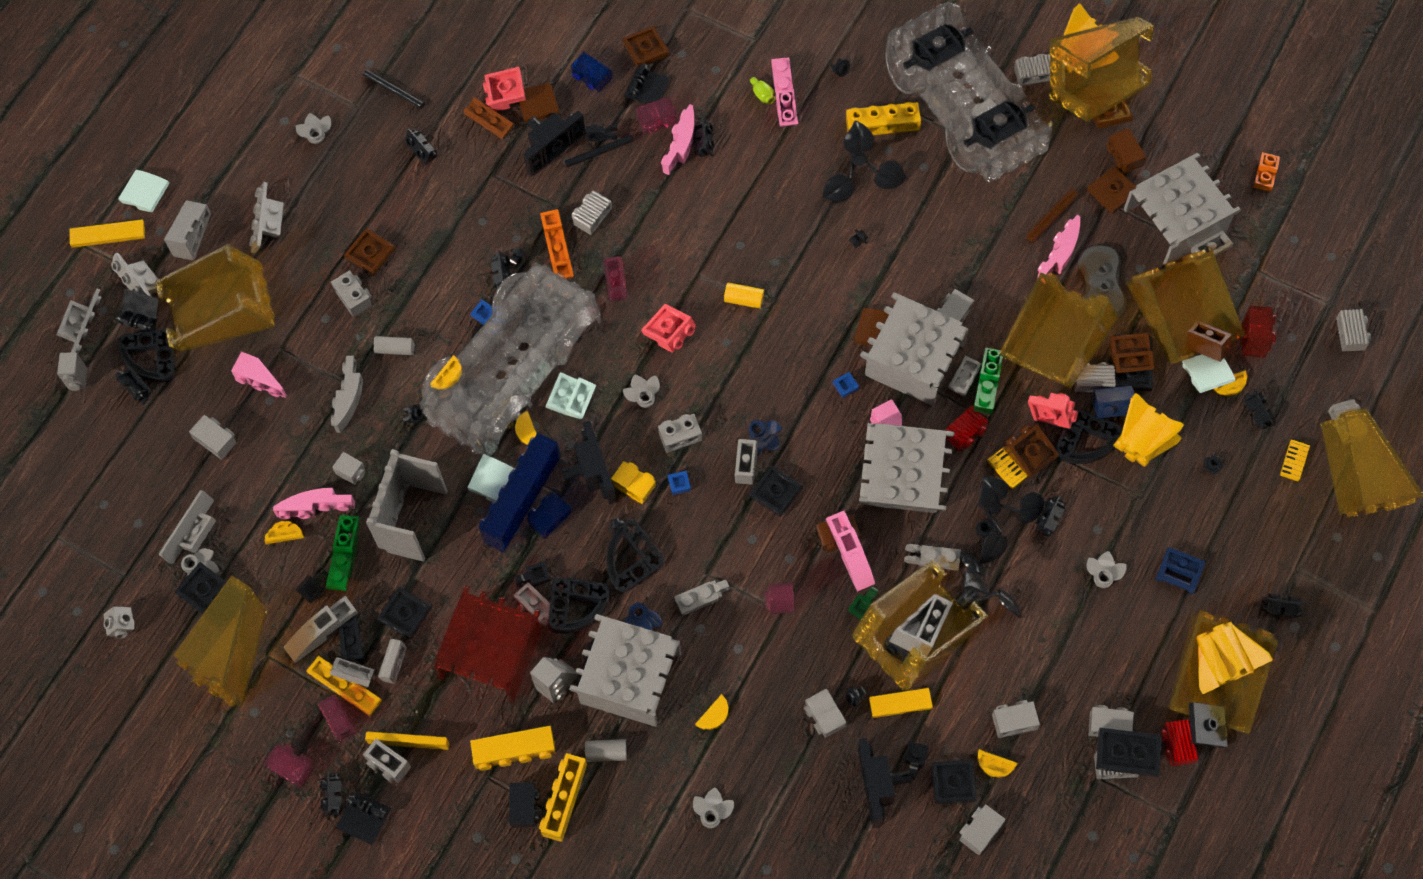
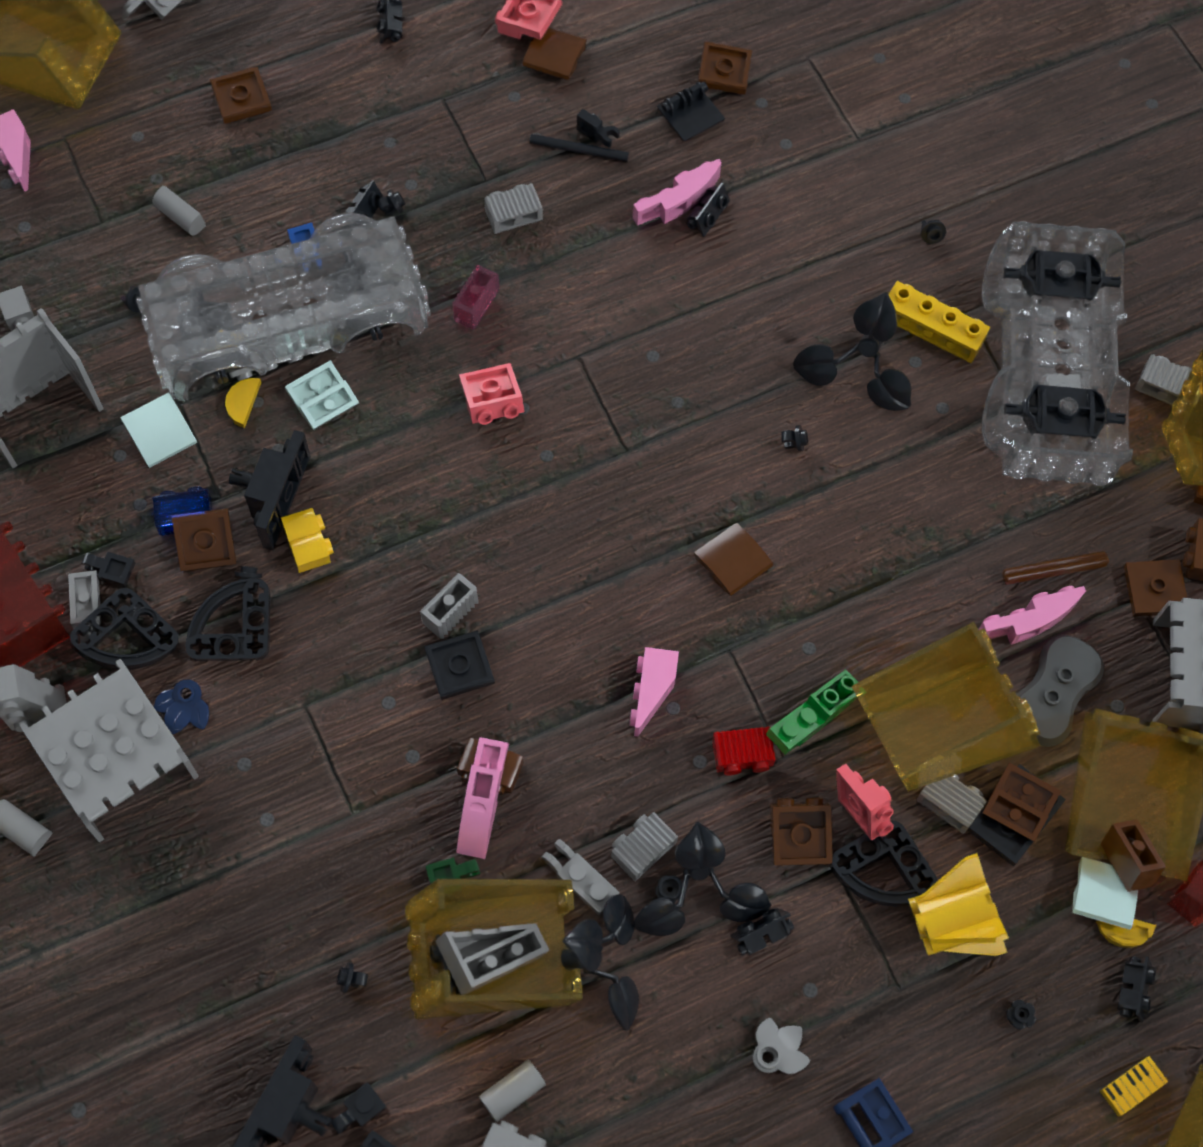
camera: 30 degrees right, 0 degrees up
(348, 397) = (81, 236): light grey slope -> none
(351, 293) = (183, 125): light grey brick -> none
(448, 375) = (192, 274): yellow tile -> none
(488, 118) = (486, 36): dark orange hinge -> none
(520, 492) = (169, 462): clear blue brick -> none
(551, 139) = (531, 99): black brick -> none
(556, 243) = (446, 219): orange slope -> none
(576, 521) = (204, 539): none -> reddish brown plate
(591, 72) = (640, 56): clear blue brick -> none
(641, 388) = (405, 441): light grey plate -> none
(656, 115) = (673, 148): clear pink brick -> none
(679, 482) = (357, 577): blue plate -> none
(680, 432) = (405, 520): light grey brick -> none
(700, 596) = (273, 726): light grey hinge -> none
(712, 805) = (81, 984): light grey plate -> none
(715, 715) = (173, 879): yellow tile -> none
(743, 295) = (608, 414): yellow brick -> none
(763, 91) = (819, 200): lime plant -> none
(767, 437) = (500, 595): dark blue plate -> none
(780, 598) = (354, 794): clear pink brick -> none
(784, 92) = (842, 216): bright pink slope -> none
(825, 713) = (296, 972): light grey brick -> none
(845, 385) = (642, 598): blue plate -> none
(900, 703) = (397, 1027): yellow tile -> none
(904, 468) = (617, 741): light grey windscreen -> none
(914, 349) = (750, 607): light grey windscreen -> none
(954, 517) = (643, 845): none -> light grey brick
(957, 305) = (838, 600): light grey brick -> none
(965, 376) = (792, 686): light grey plate -> none
(987, 690) = (512, 1090): none -> light grey brick
(1007, 468) = (756, 834): yellow tile -> none
(1112, 401) = (950, 843): dark blue brick -> none

